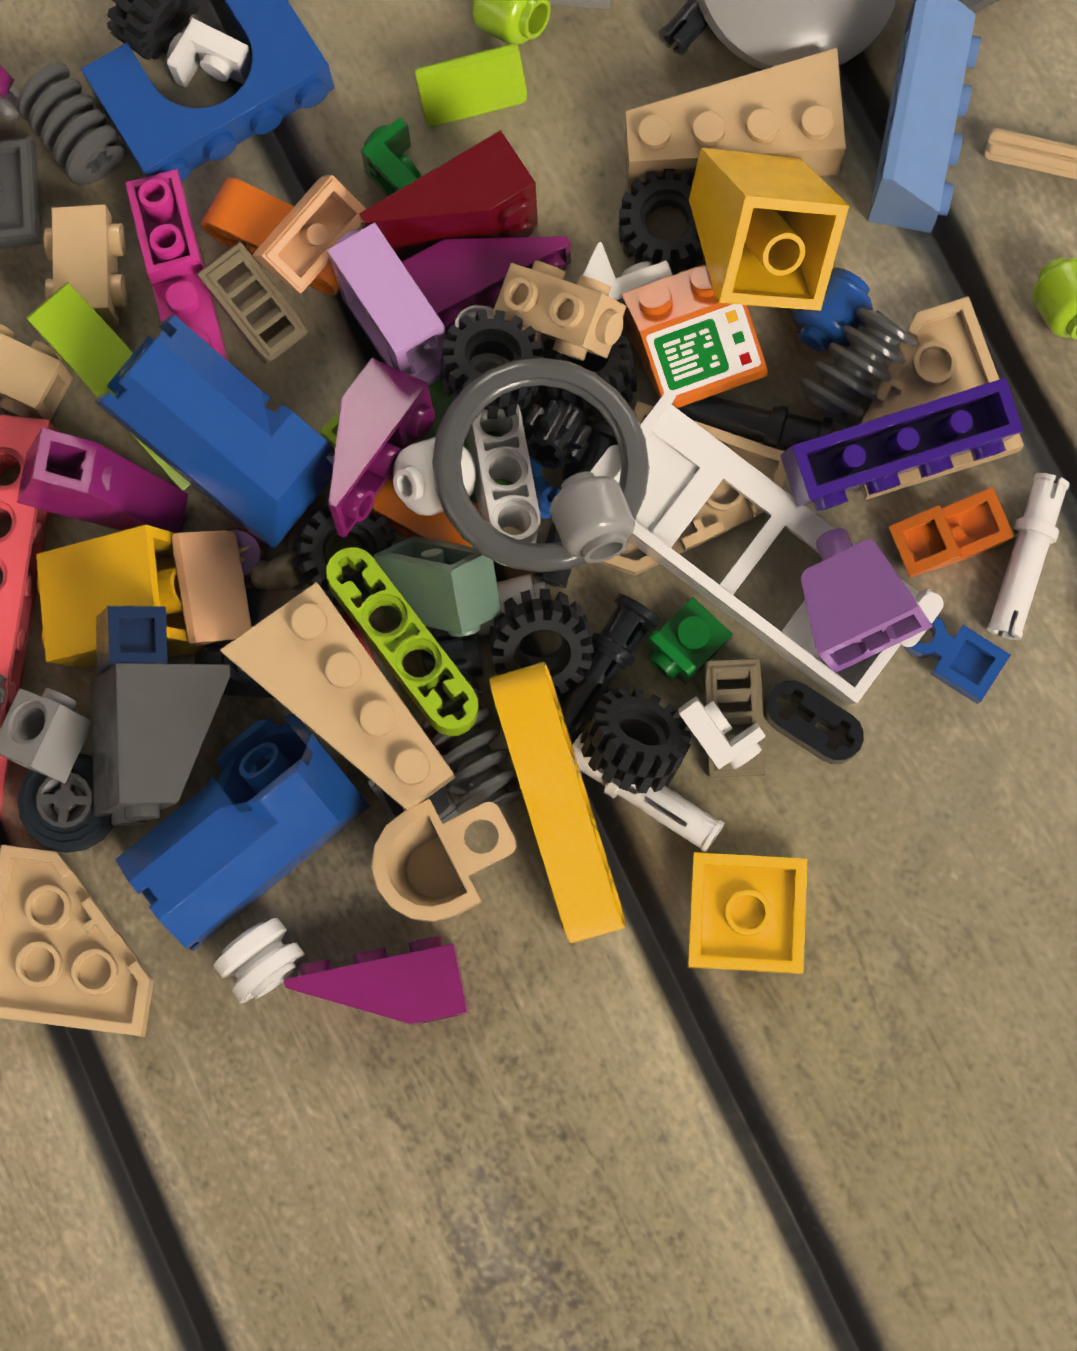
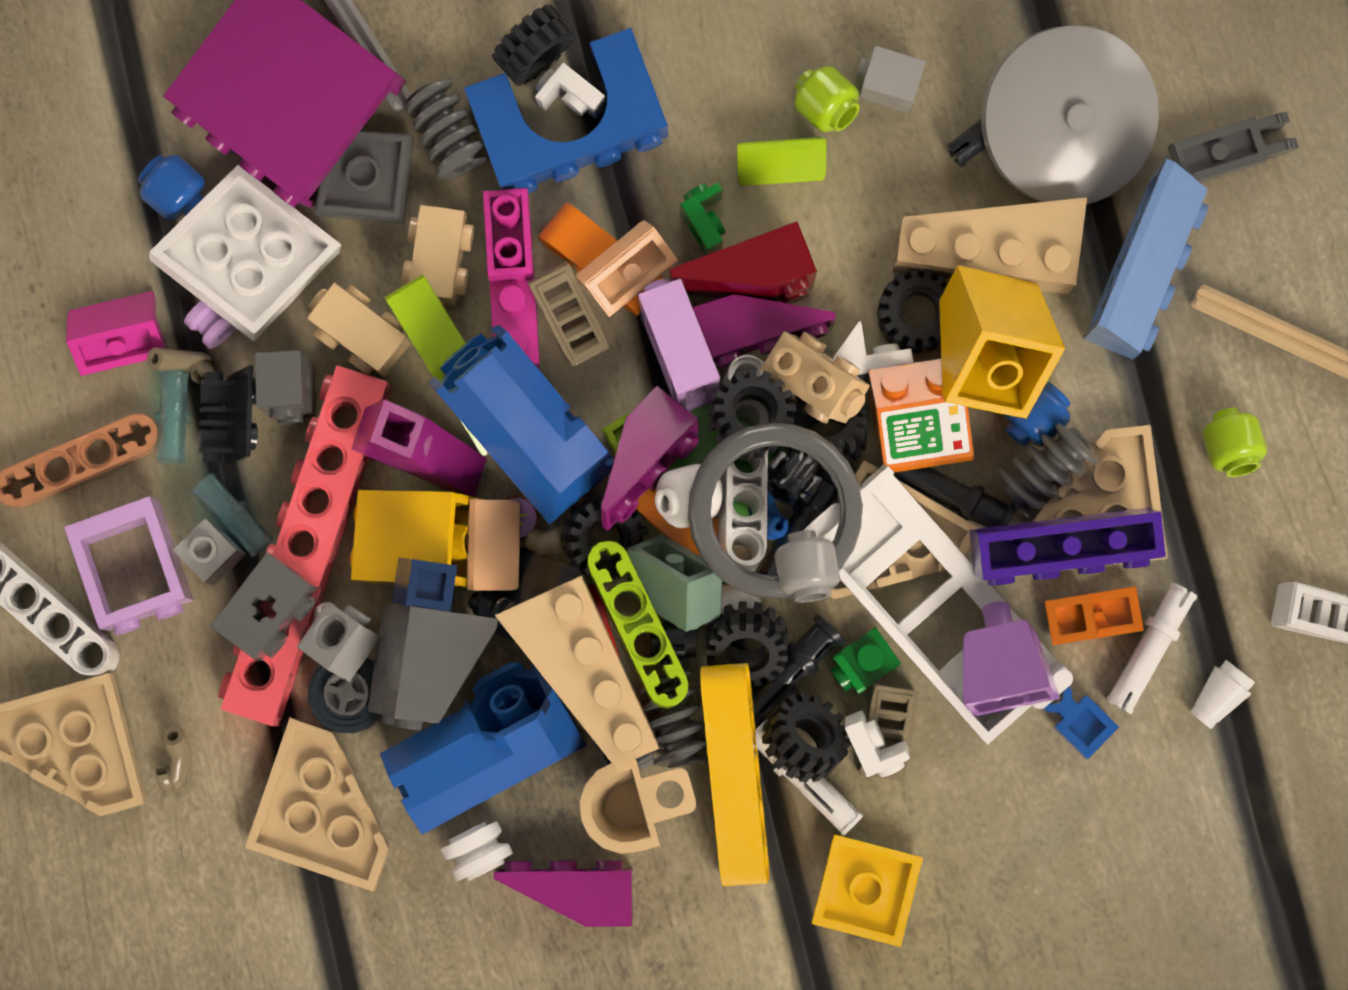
camera: 10 degrees right, 5 degrees up
(822, 711) = (959, 739): black beam -> none

